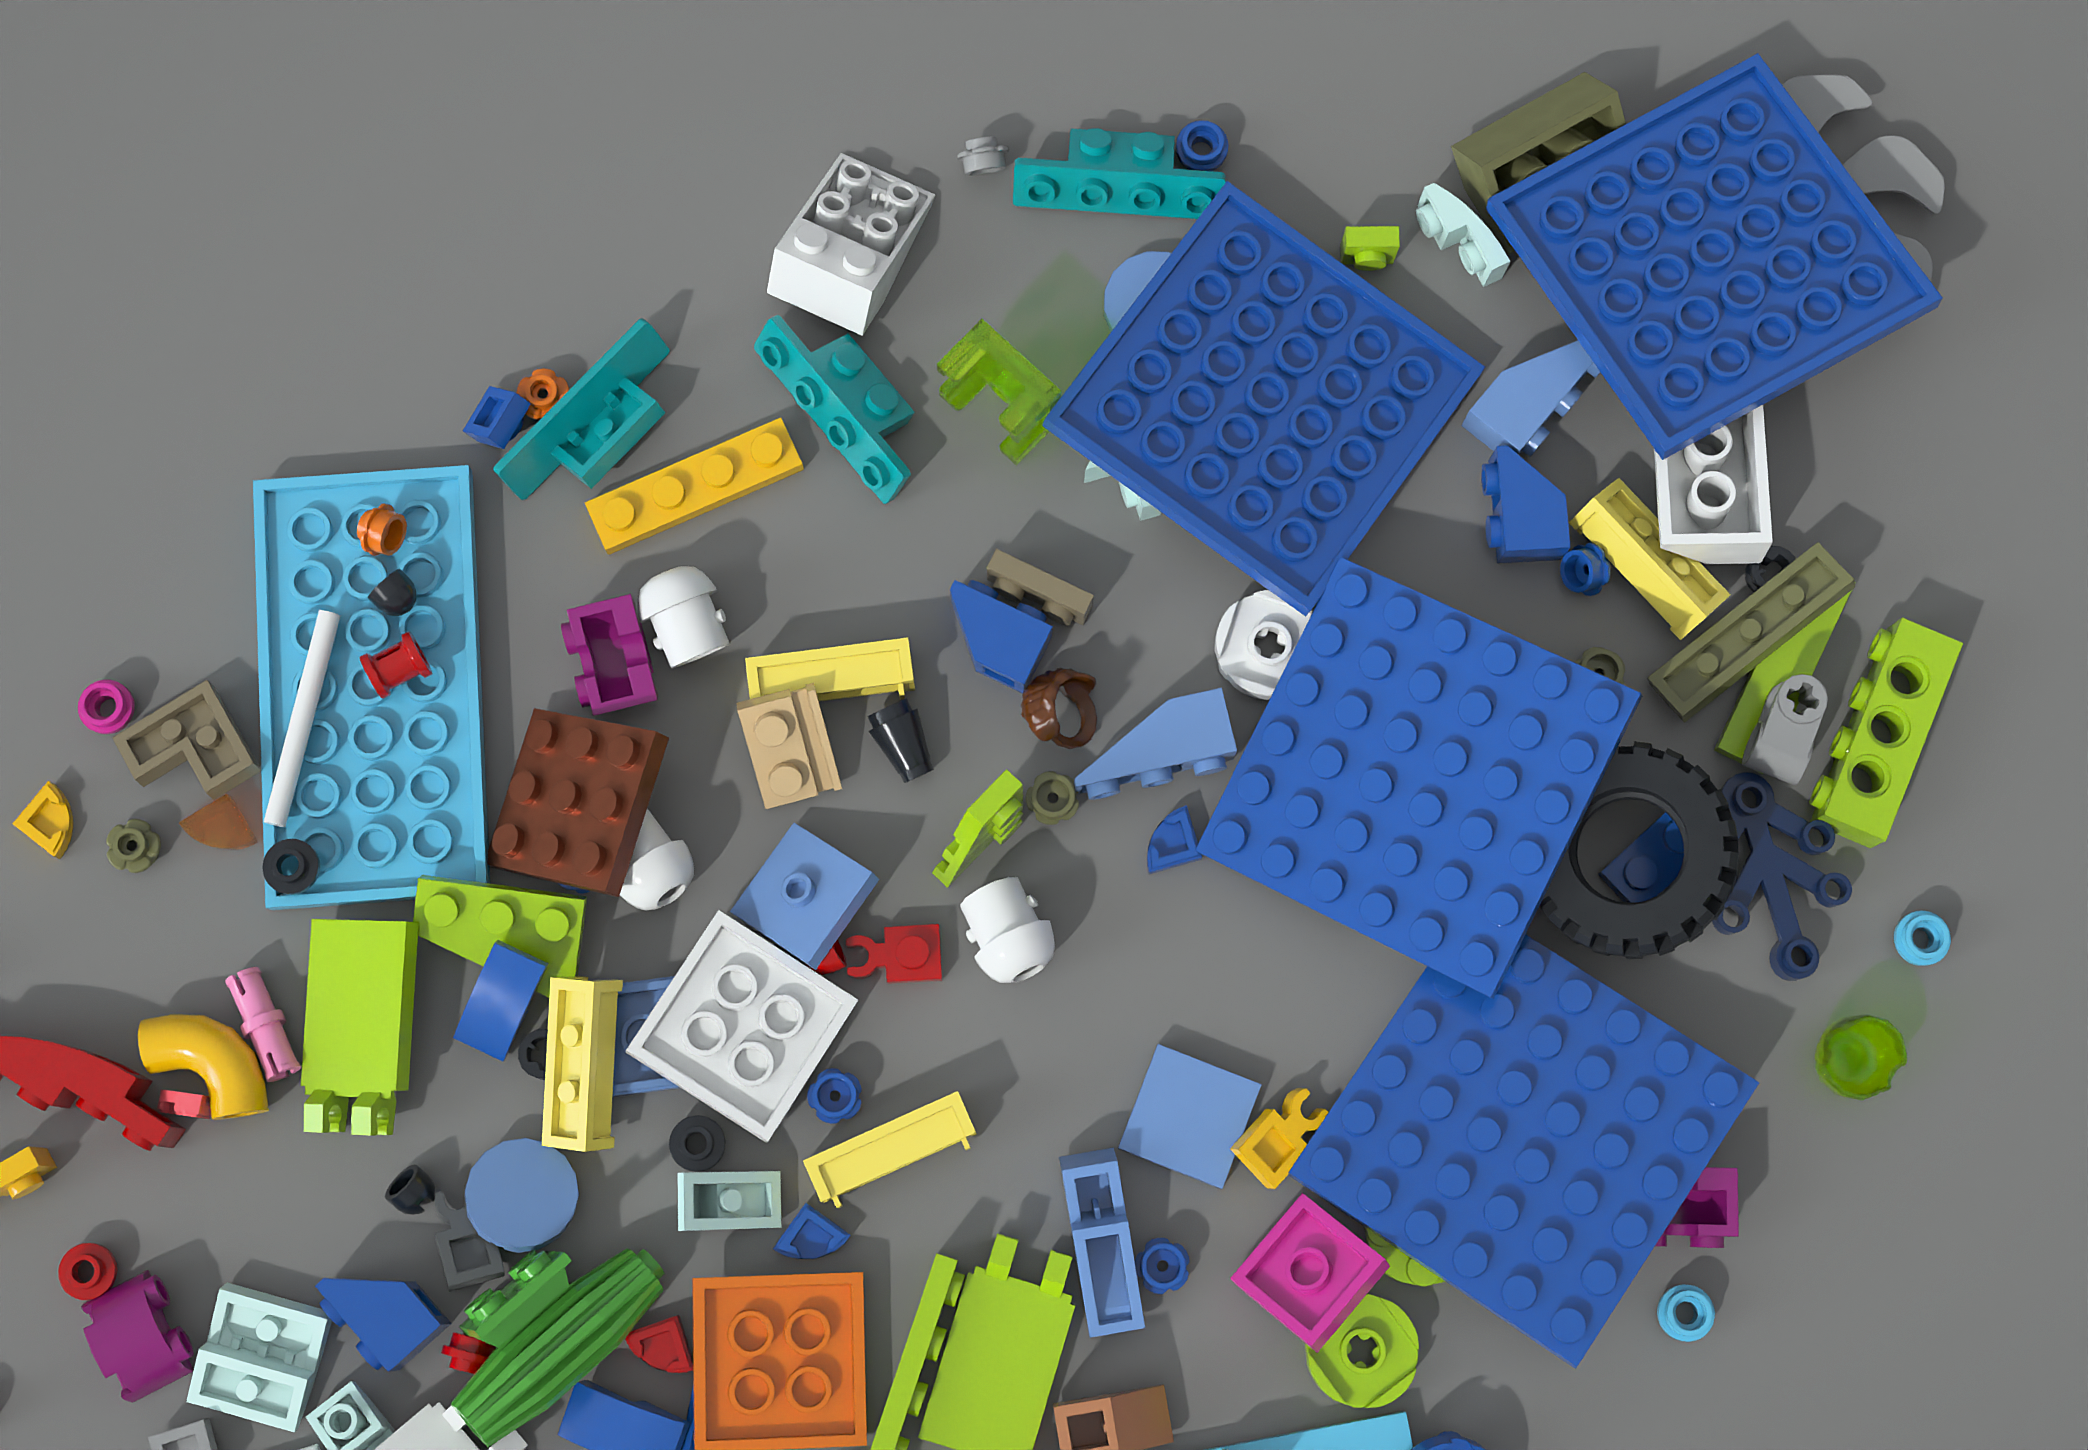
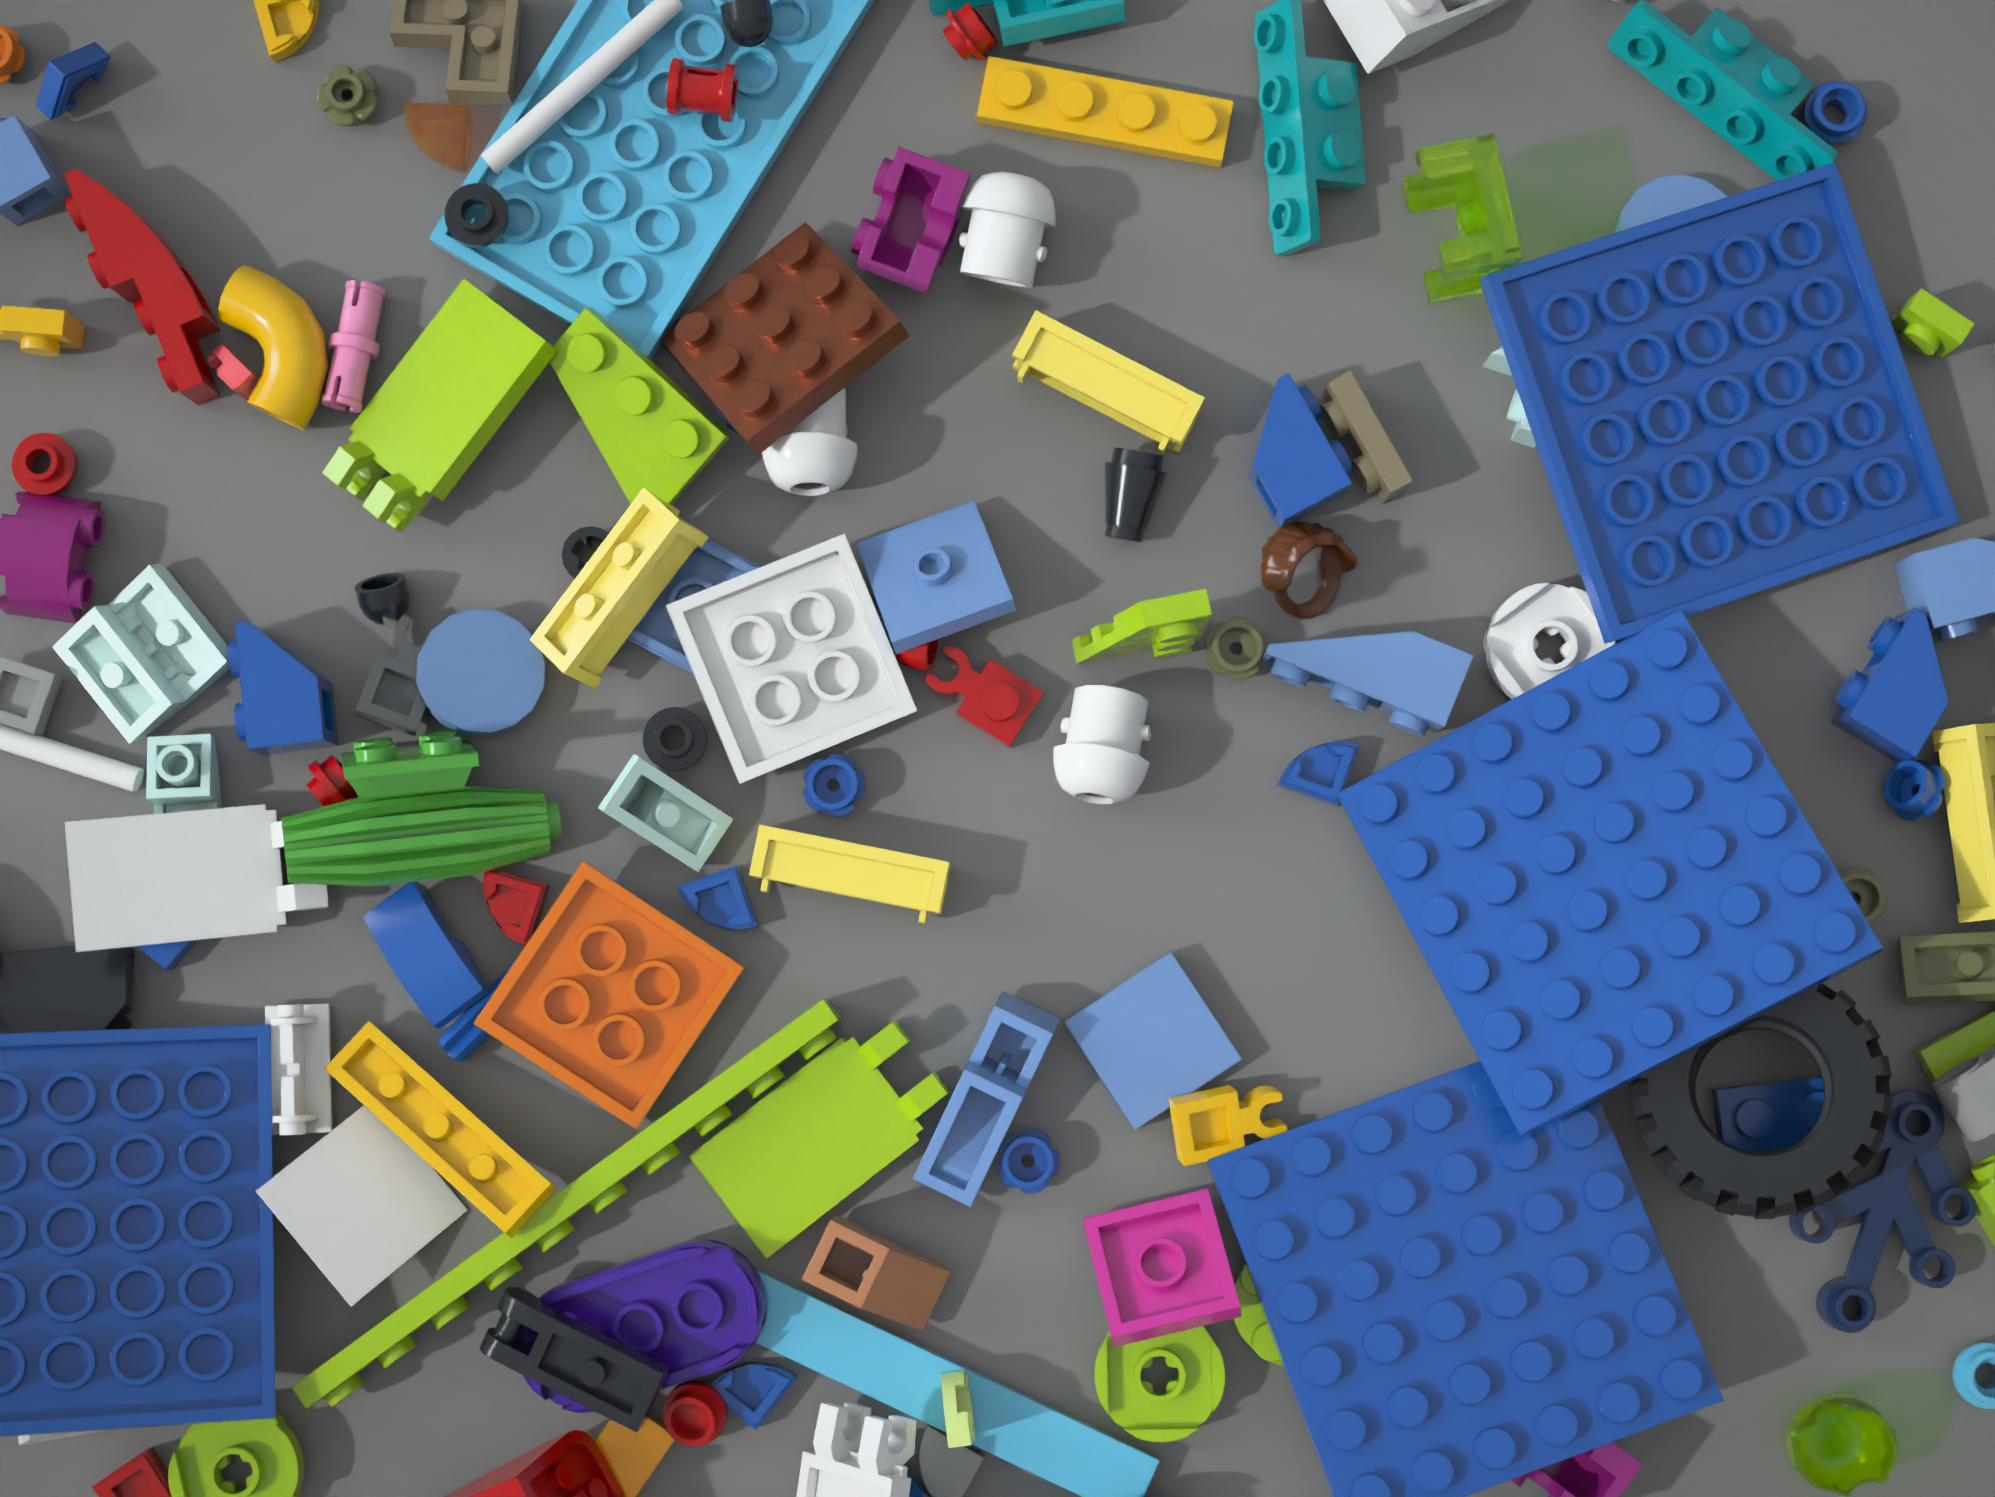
camera: 45 degrees right, 5 degrees up
(500, 1000) = (584, 476): blue slope -> none
(559, 495) = (969, 33): none -> red plate
(789, 745) = (1019, 423): tan plate -> none

